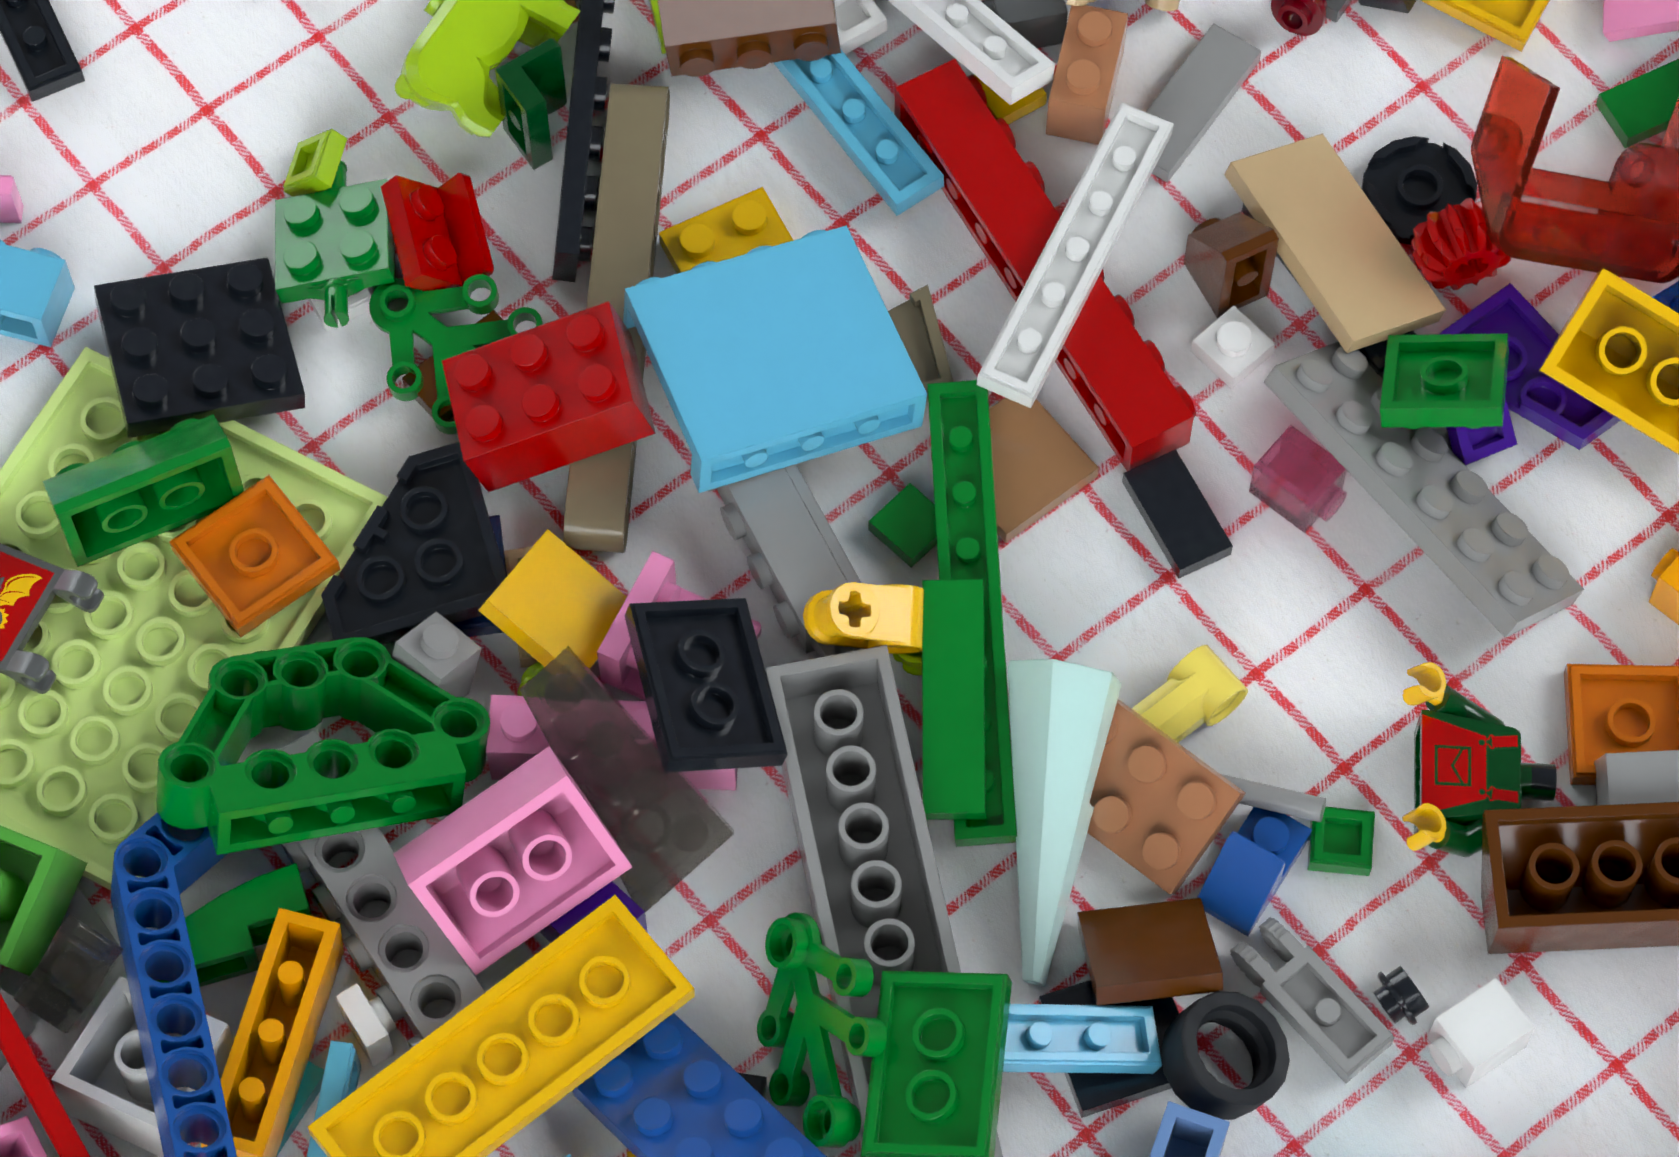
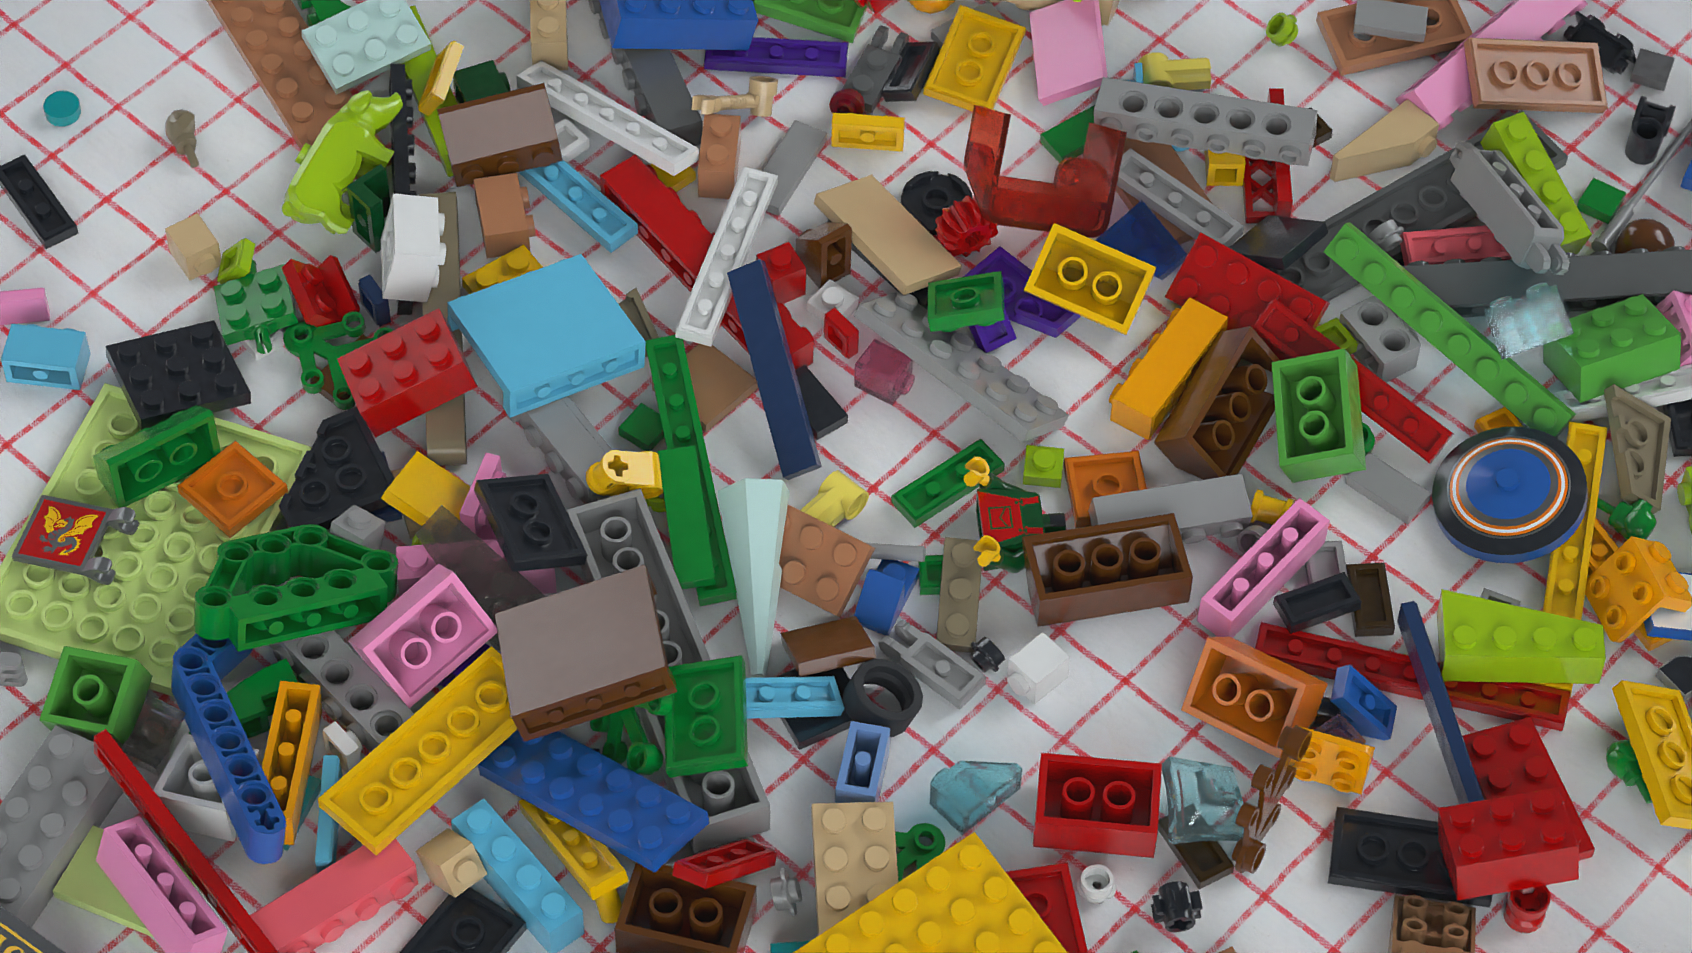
camera: 10 degrees left, 10 degrees down
(253, 130) = (193, 247): none -> tan brick
(518, 256) = (373, 302): none -> dark blue tile
(582, 188) = (412, 248): none -> white brick
(736, 132) = (502, 214): none -> nougat brick
(756, 935) = (583, 653): none -> panel
(1125, 460) = (774, 370): none -> dark blue tile
(1158, 289) = (785, 272): none -> red brick
(1239, 403) = (841, 333): none -> red tile
(1326, 58) = (867, 131): none -> yellow plate
(1369, 885) = (959, 595): none -> dark tan plate
(1371, 682) = (942, 484): none -> green tile
(1532, 672) = (1043, 466): none -> lime plate

